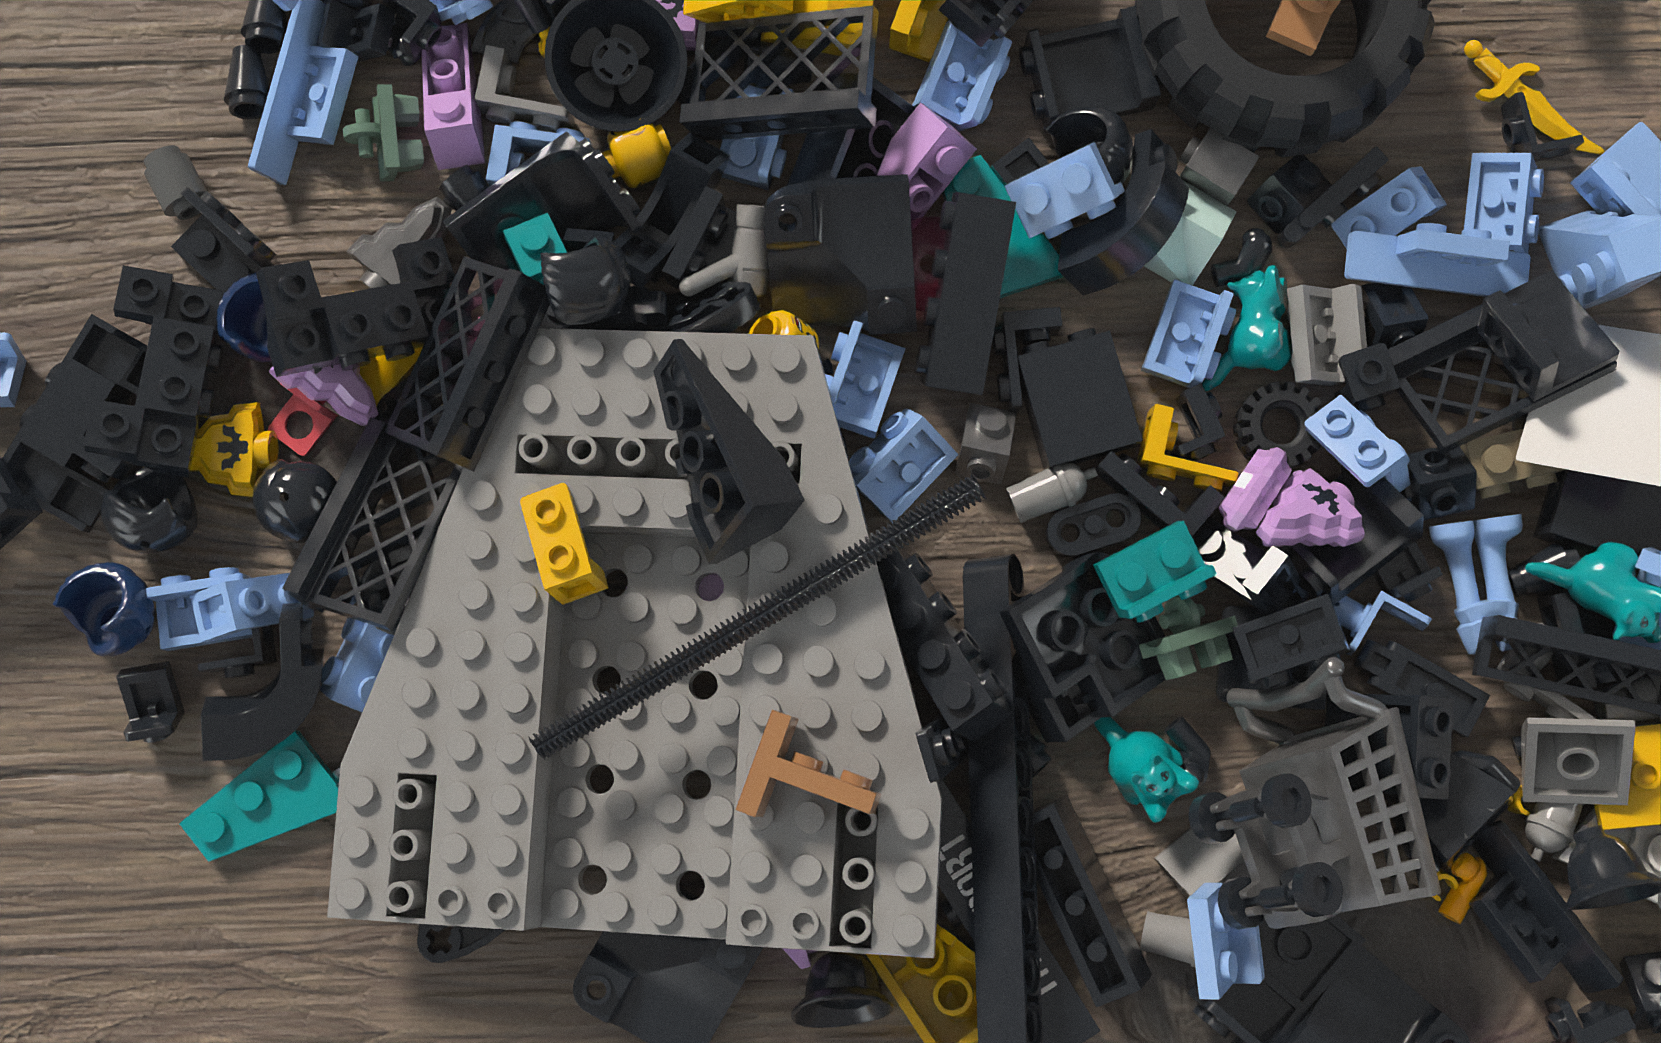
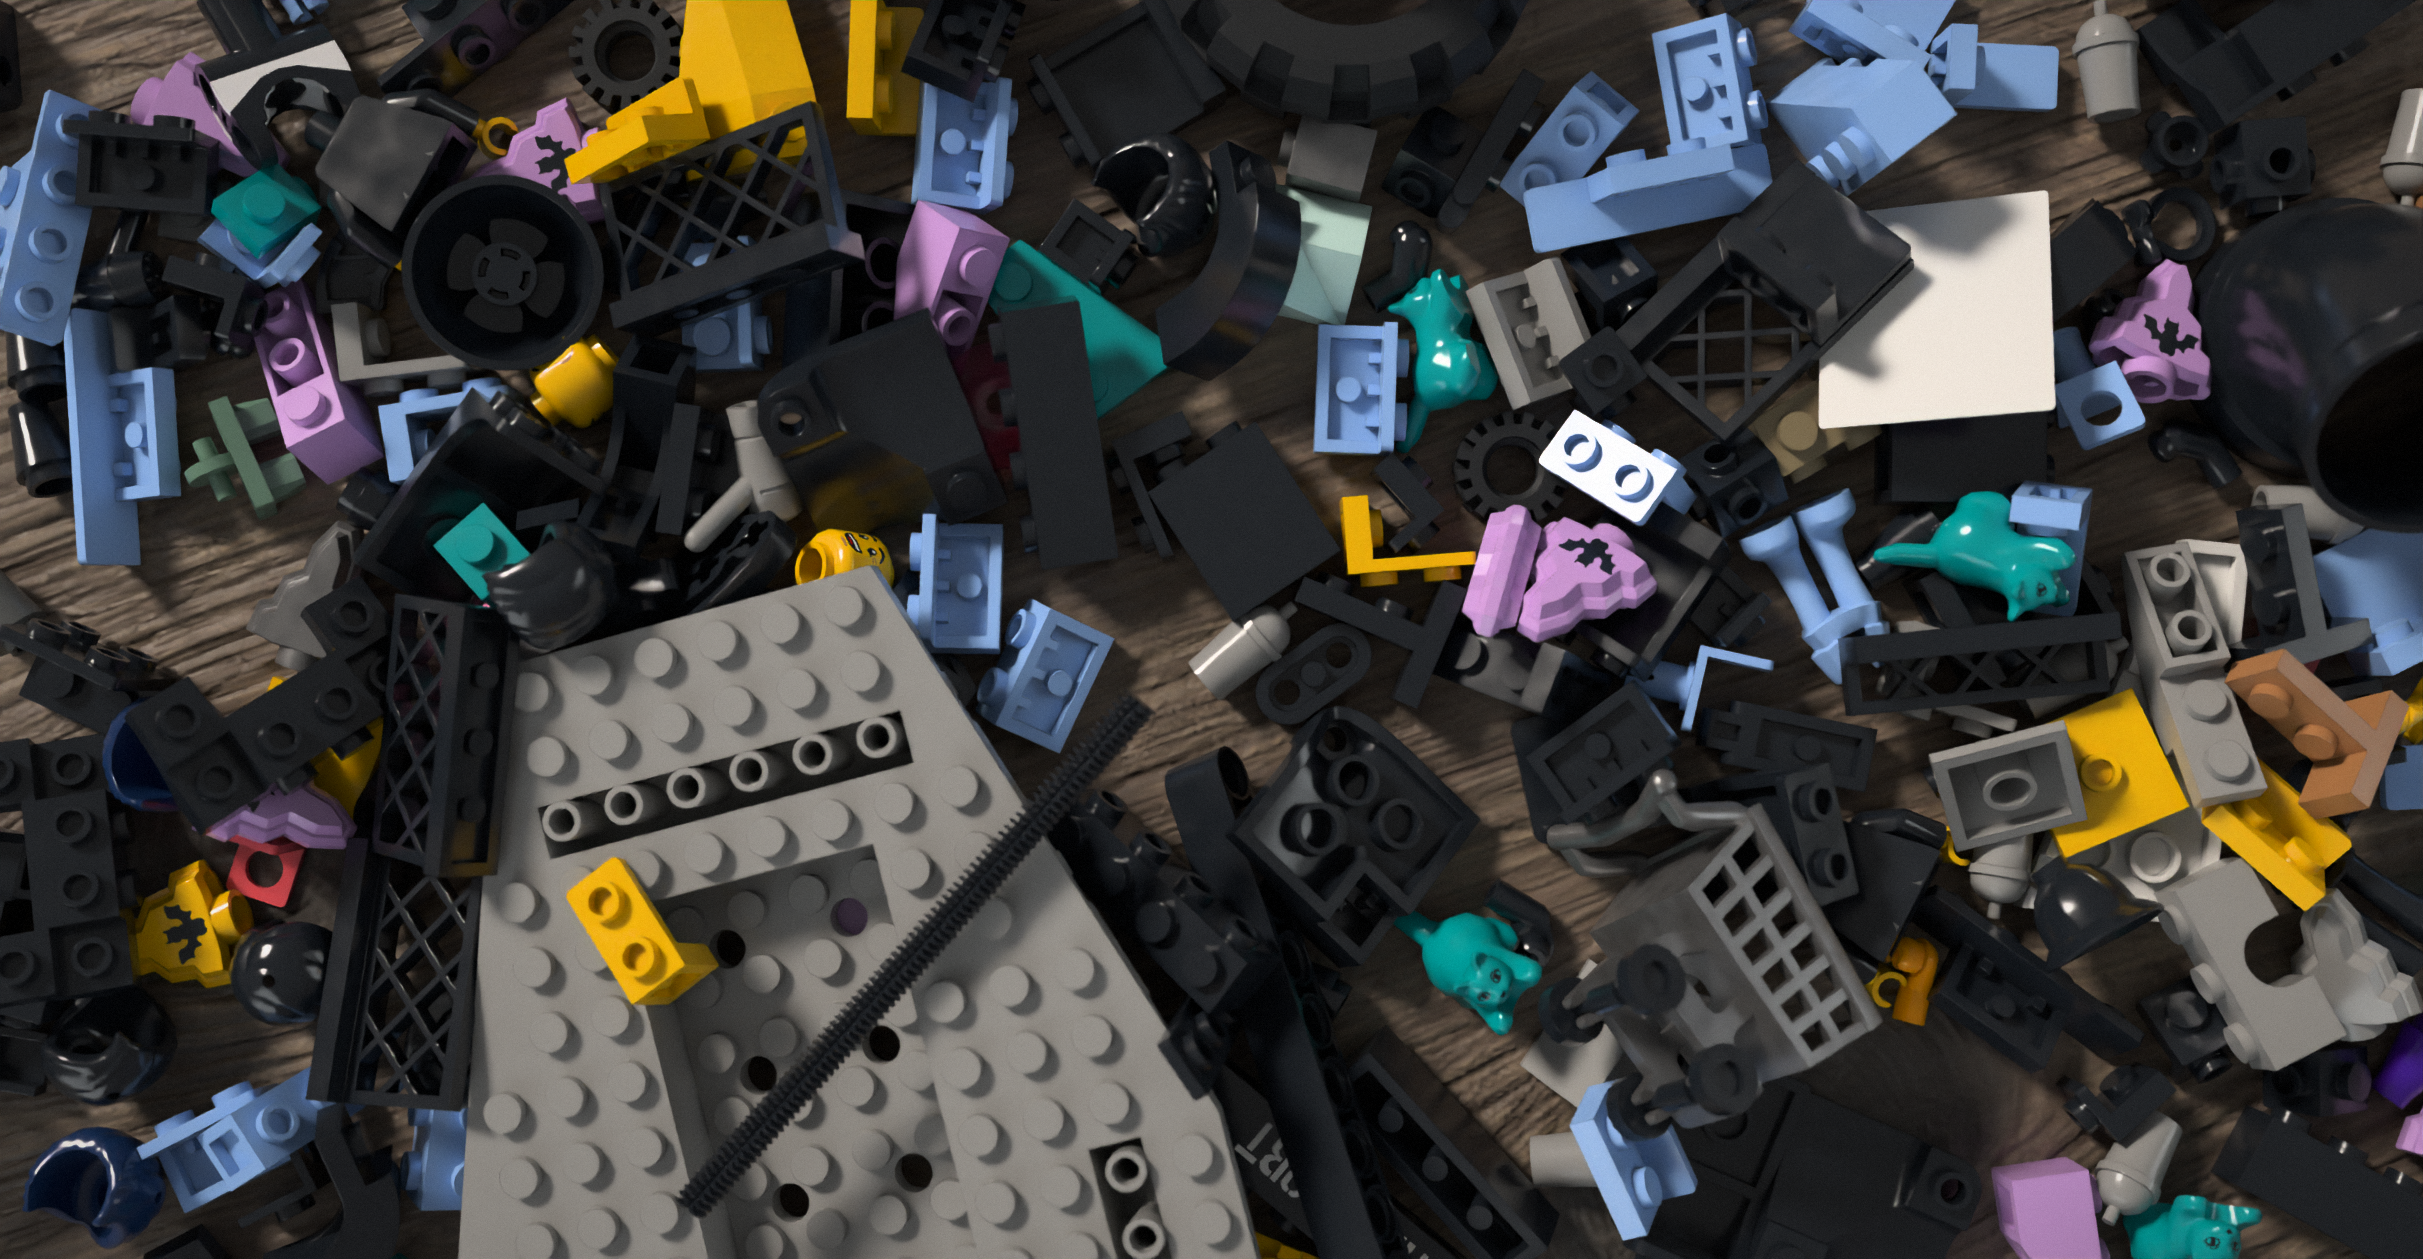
camera: 15 degrees left, 5 degrees up
(733, 471) = (823, 778): black wedge -> none
(800, 772) = (1029, 1141): medium nougat bracket -> none
(986, 443) = (1144, 612): flat silver bracket -> none
(1064, 191) = (1136, 263): light blue bracket -> none
(1154, 572) = (1406, 718): teal bracket -> none
(1184, 621) = (1460, 802): sand green hips -> none

